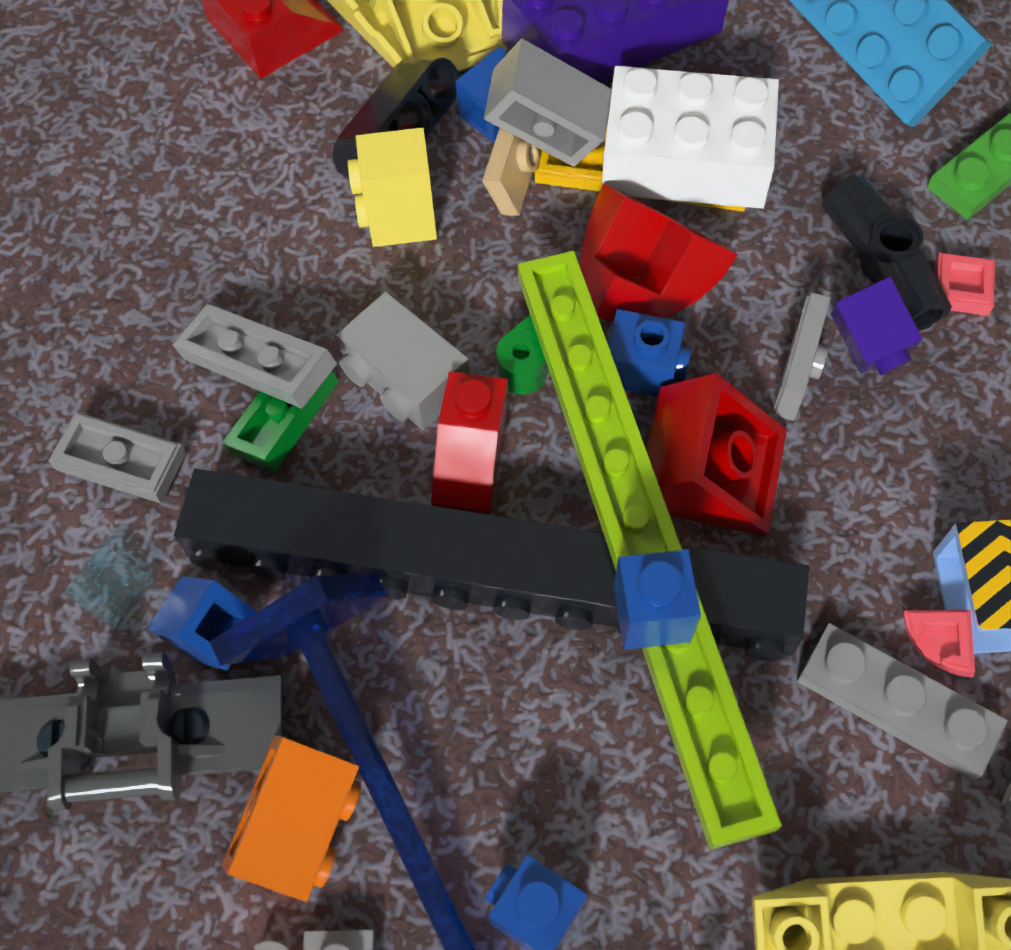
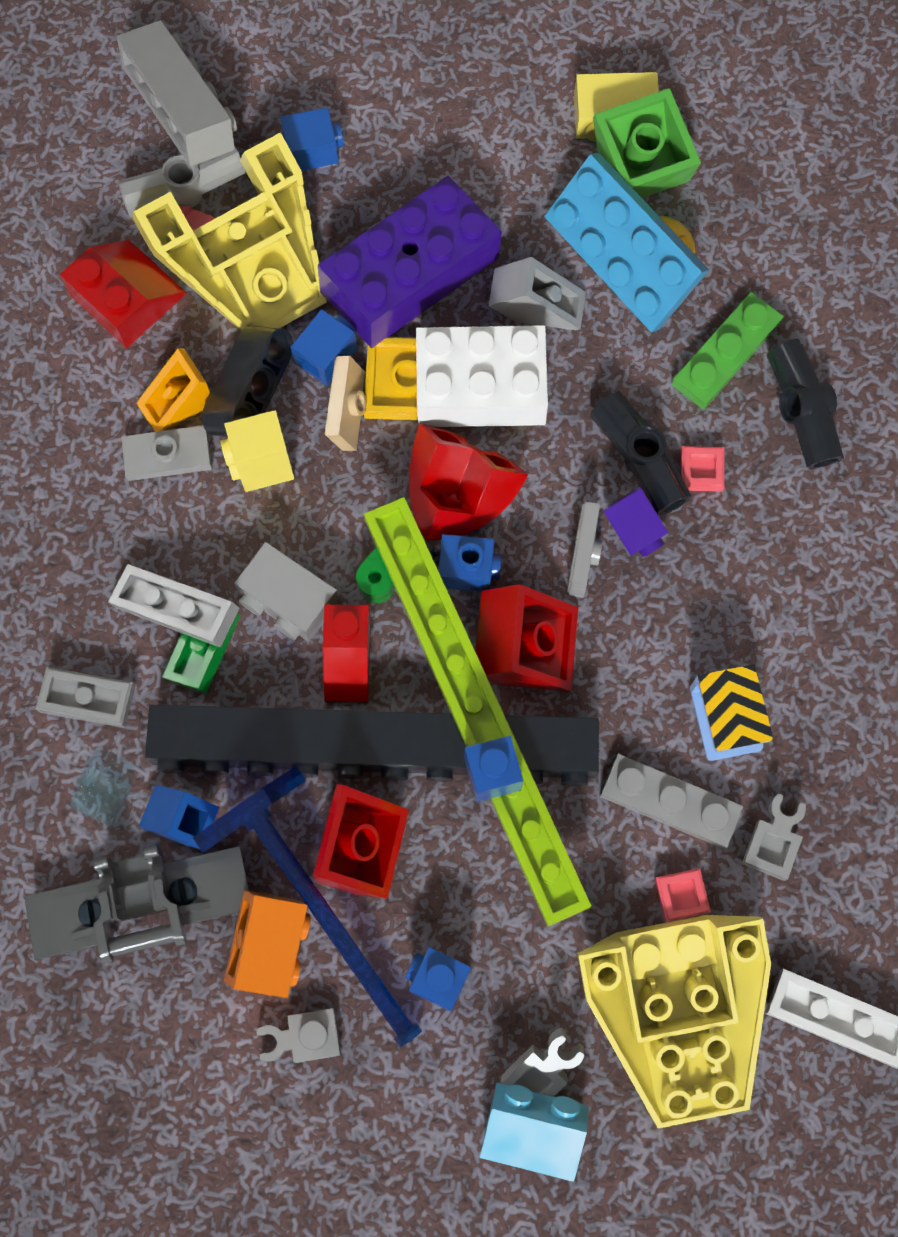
camera: 10 degrees left, 10 degrees up
(283, 190) = (166, 453): none -> light grey plate
(306, 121) = (174, 394): none -> light orange slope
(446, 689) = (360, 843): none -> red slope
(548, 103) = (367, 364): light grey brick -> none
(765, 49) = (536, 295): none -> light grey slope
(909, 838) = (682, 895): none -> coral tile
(943, 639) = (697, 753): coral tile -> none

